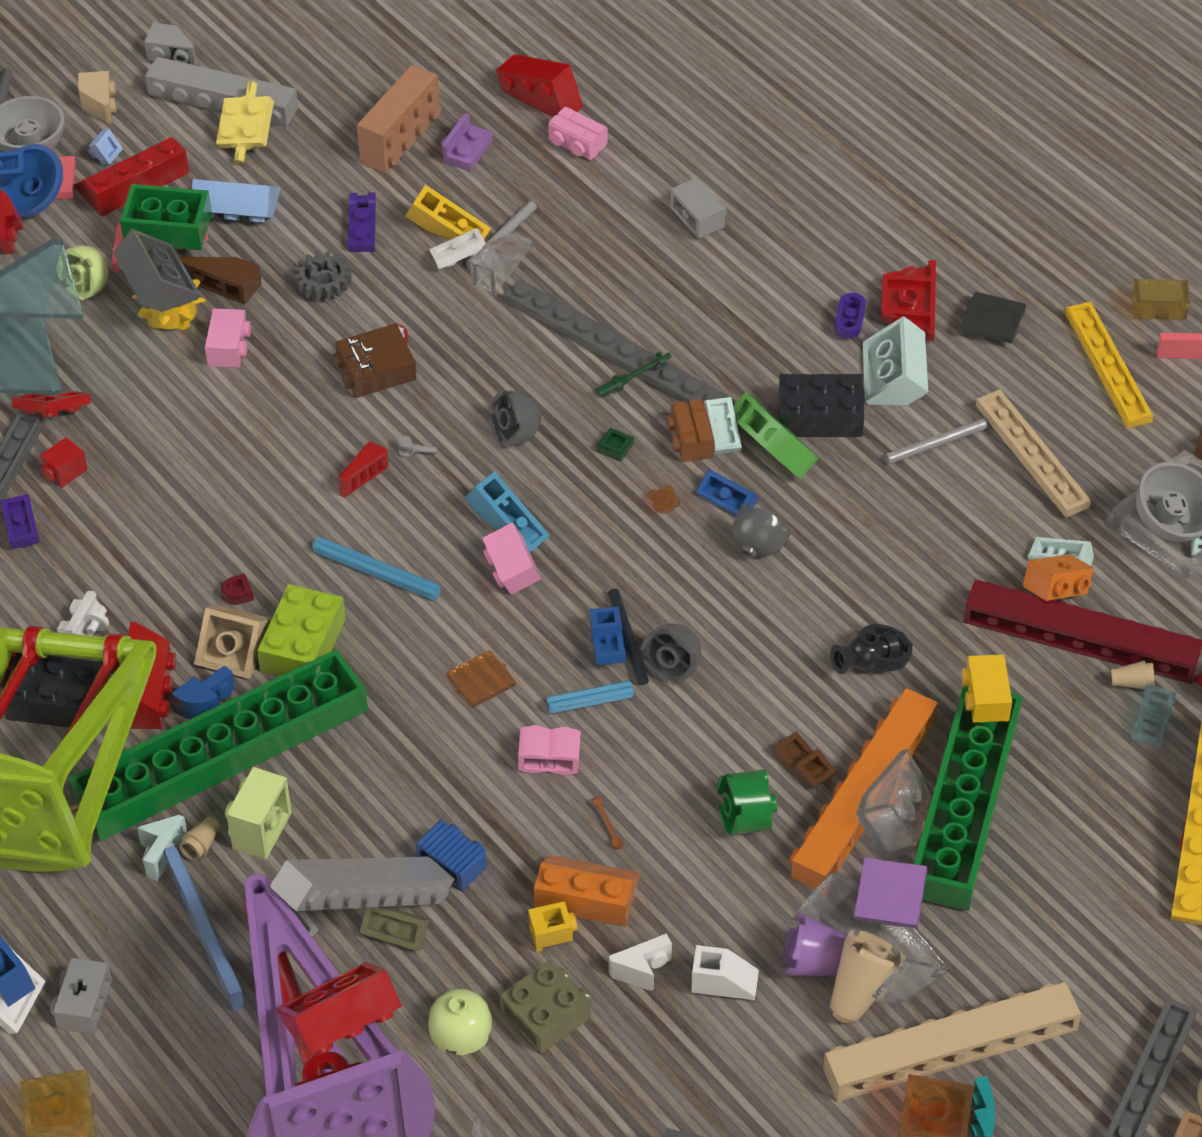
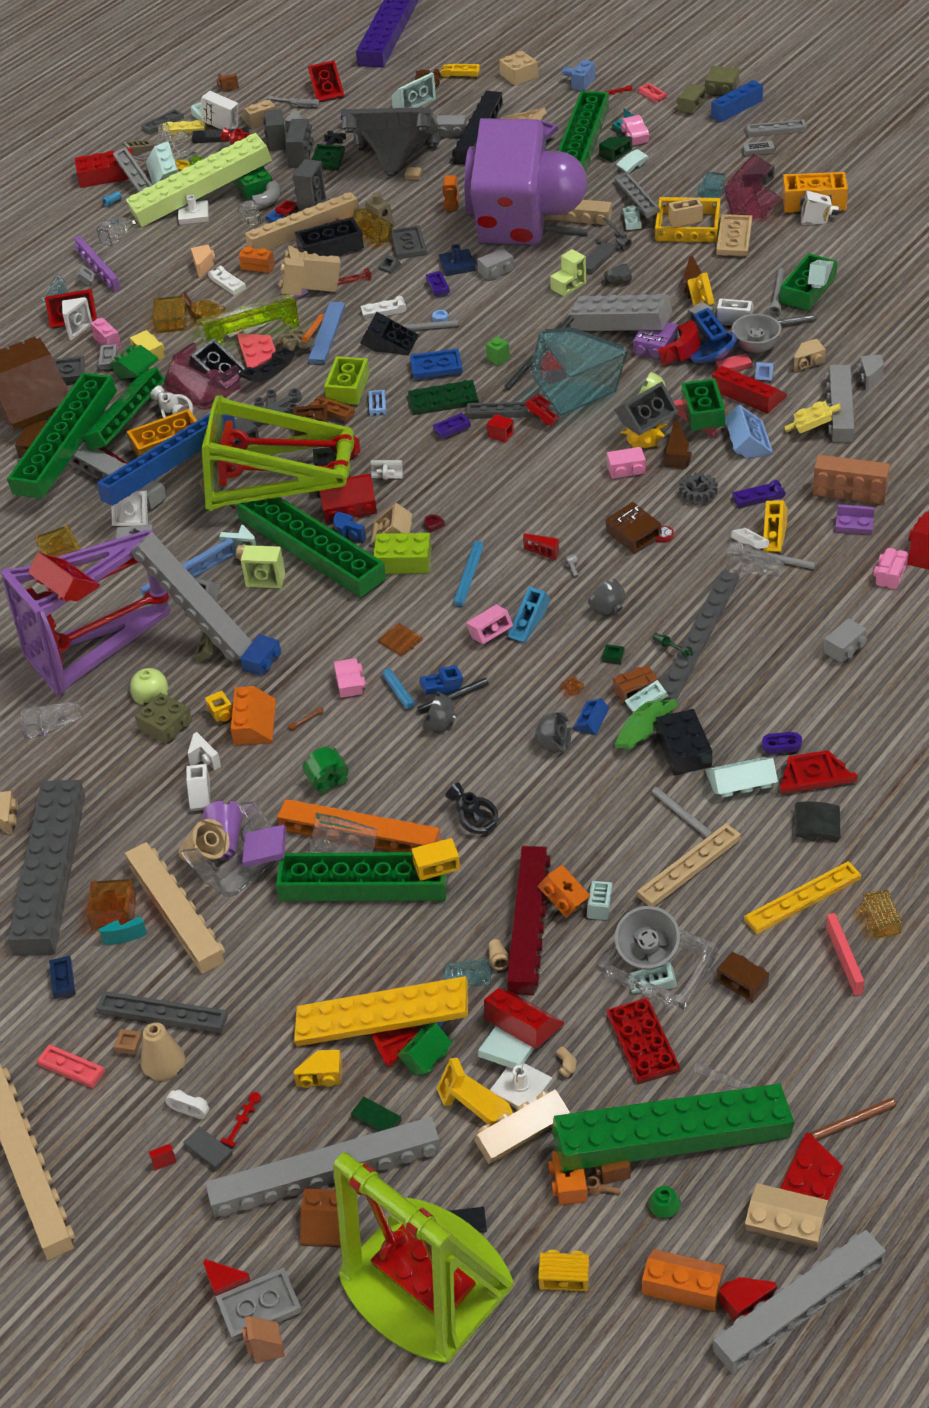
camera: 80 degrees right, 5 degrees down
(802, 761) = (379, 796): reddish brown slope -> none

